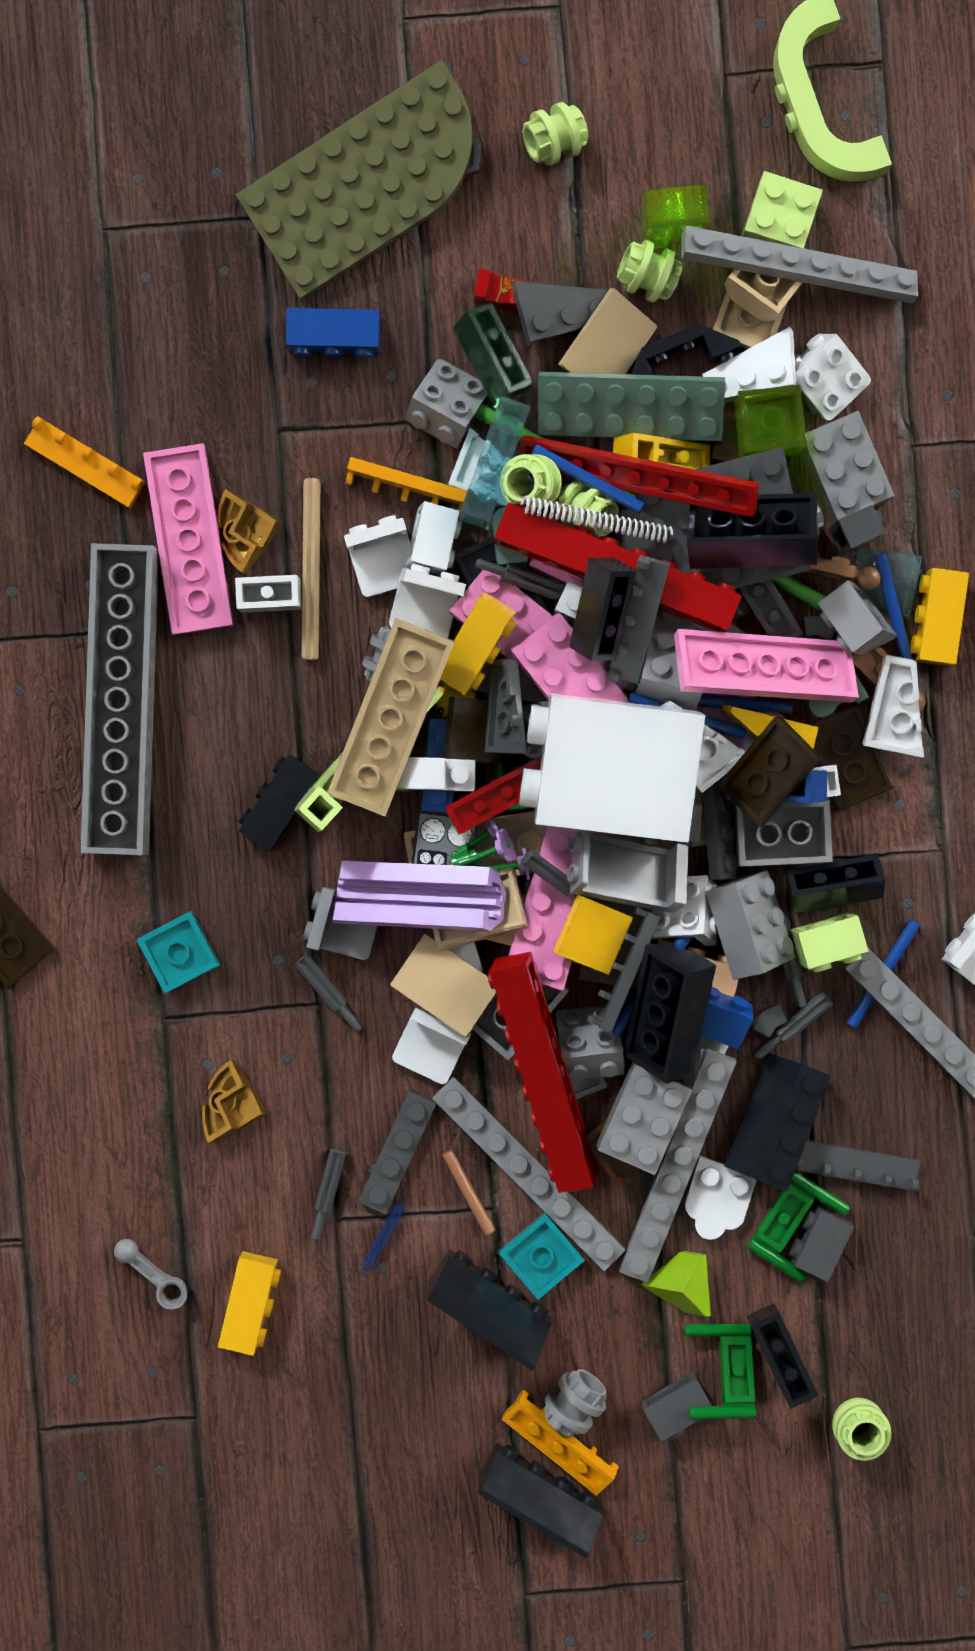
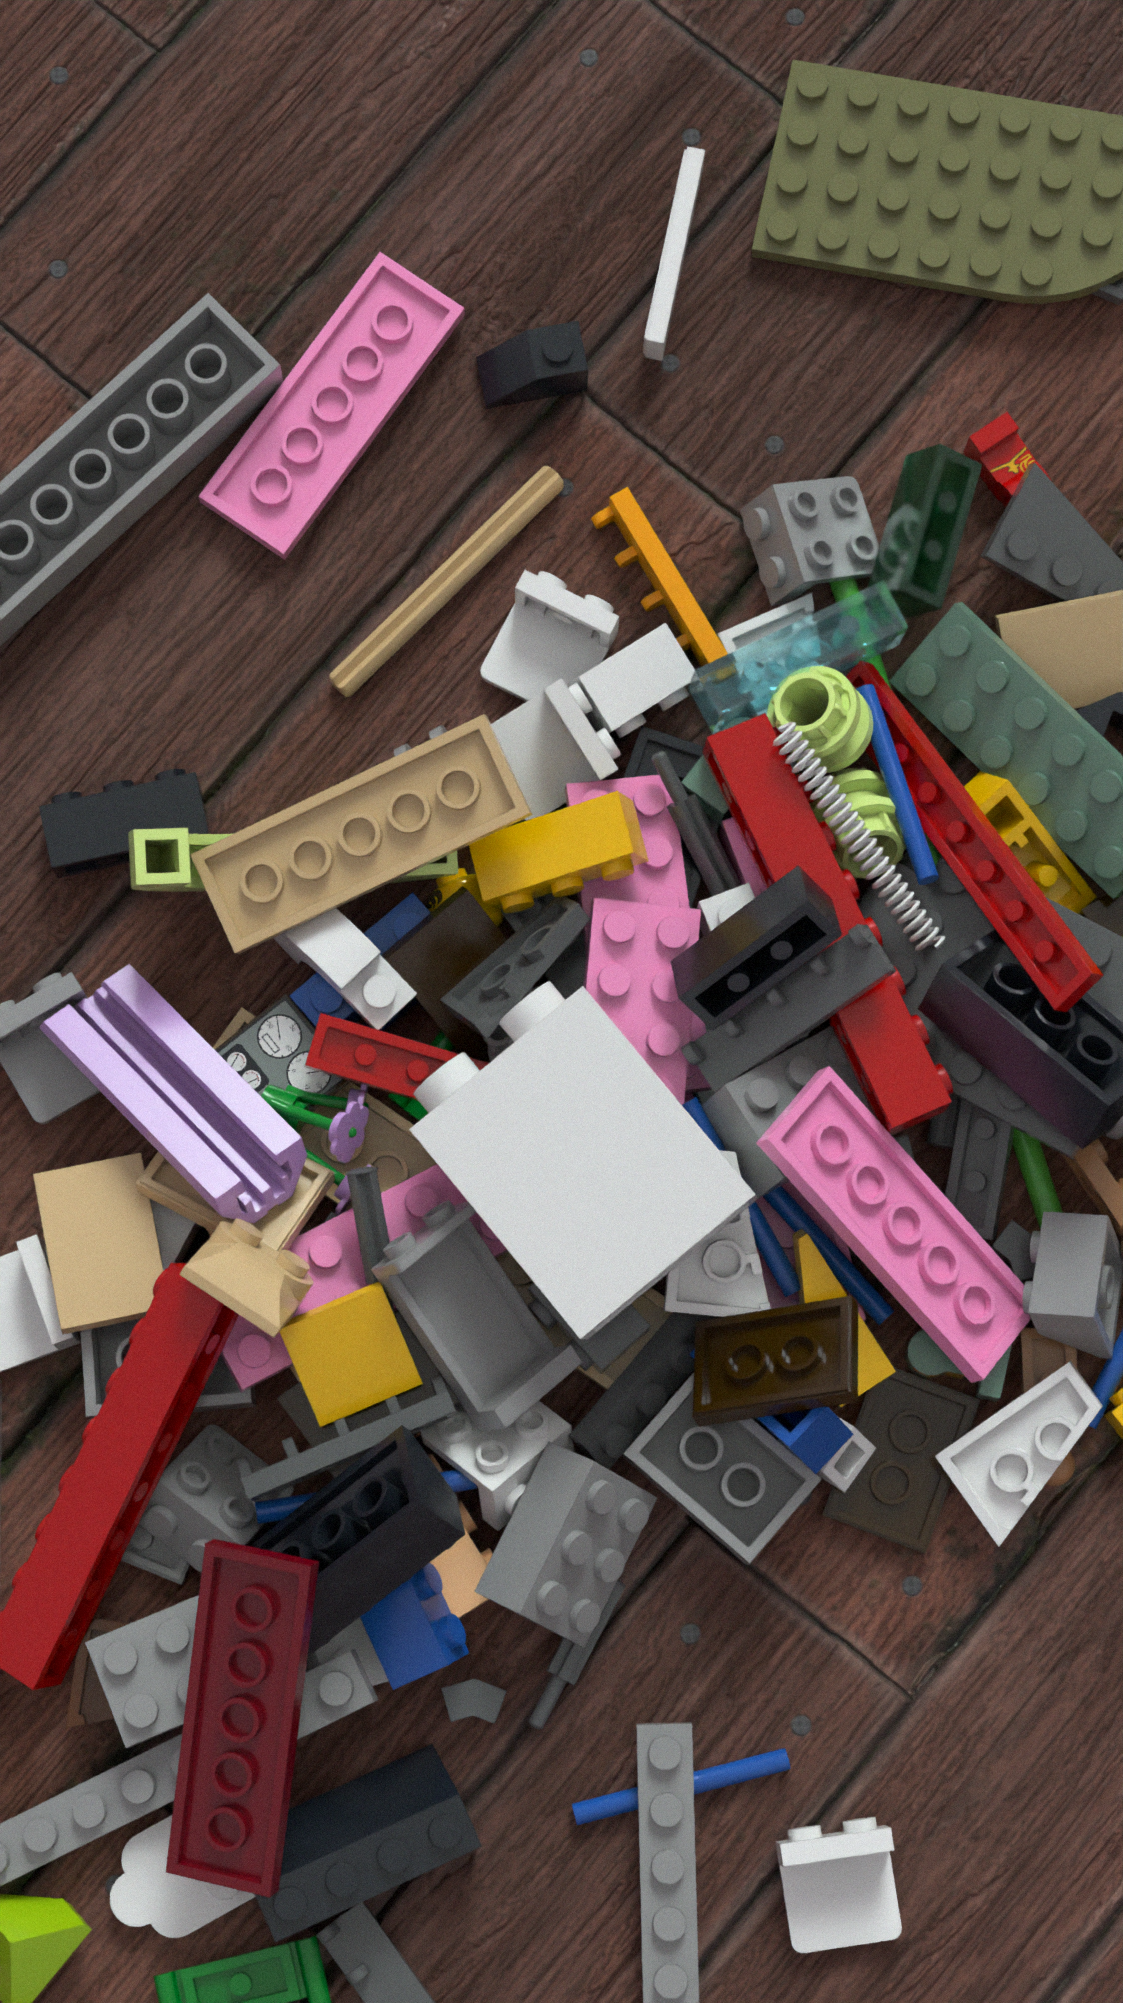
camera: 45 degrees right, 10 degrees down
(84, 462) = (298, 200): light orange hinge -> none
(245, 529) = (414, 459): pearl gold brick -> none
(257, 440) = (534, 366): none -> black slope
(268, 332) = (673, 253): none -> white tile
(268, 593) = (364, 557): white brick -> none
(333, 332) = (753, 325): blue brick -> none
(526, 945) = (250, 1275): none -> tan slope
(692, 1120) = (242, 1717): none -> dark red plate
(796, 1023) = (505, 1741): dark grey axle -> none
(829, 941) = (648, 1666): yellowish green brick -> none
(835, 883) = (727, 1600): black brick -> none

